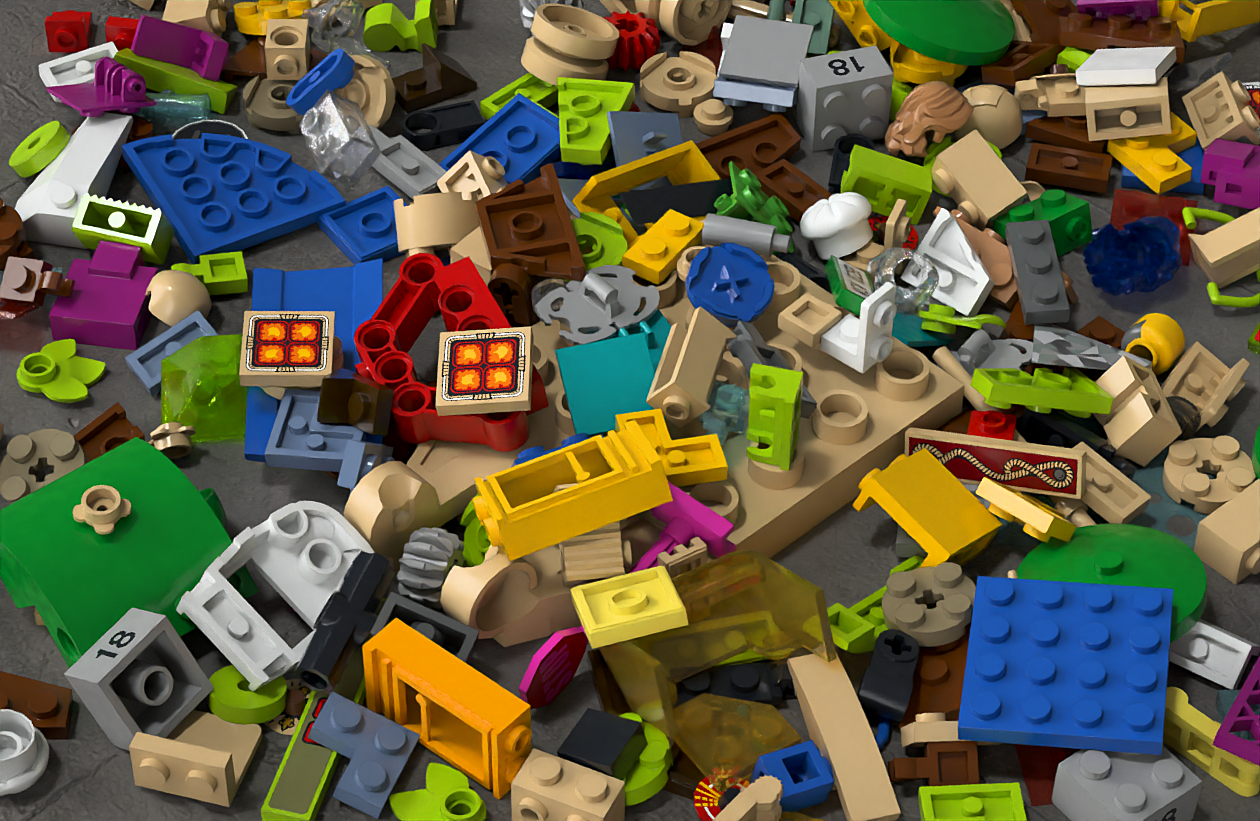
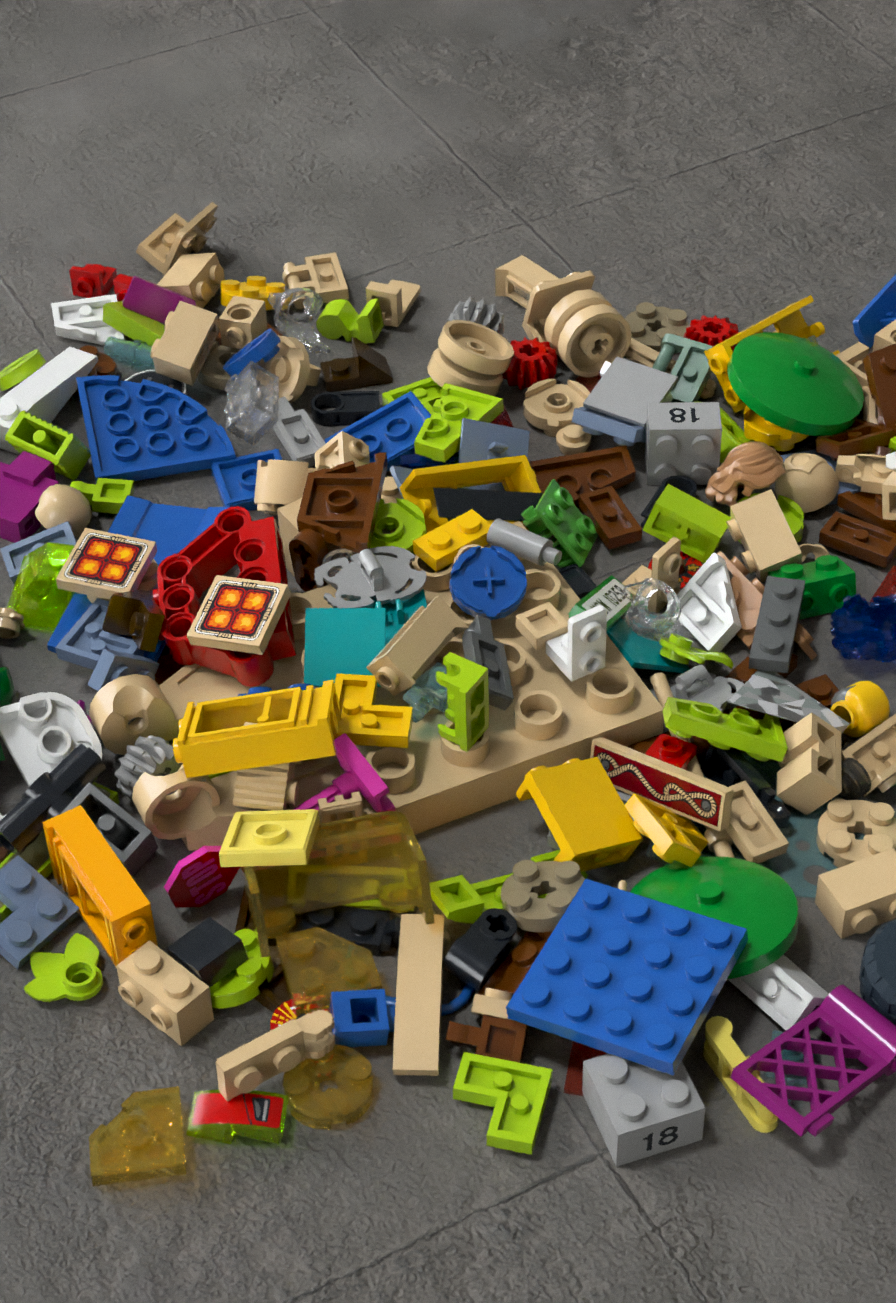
camera: 20 degrees right, 0 degrees up
(114, 89) = (94, 334): magenta hinge -> none
(235, 82) = (185, 342): none -> tan brick
(838, 224) = (627, 549): white piece -> none

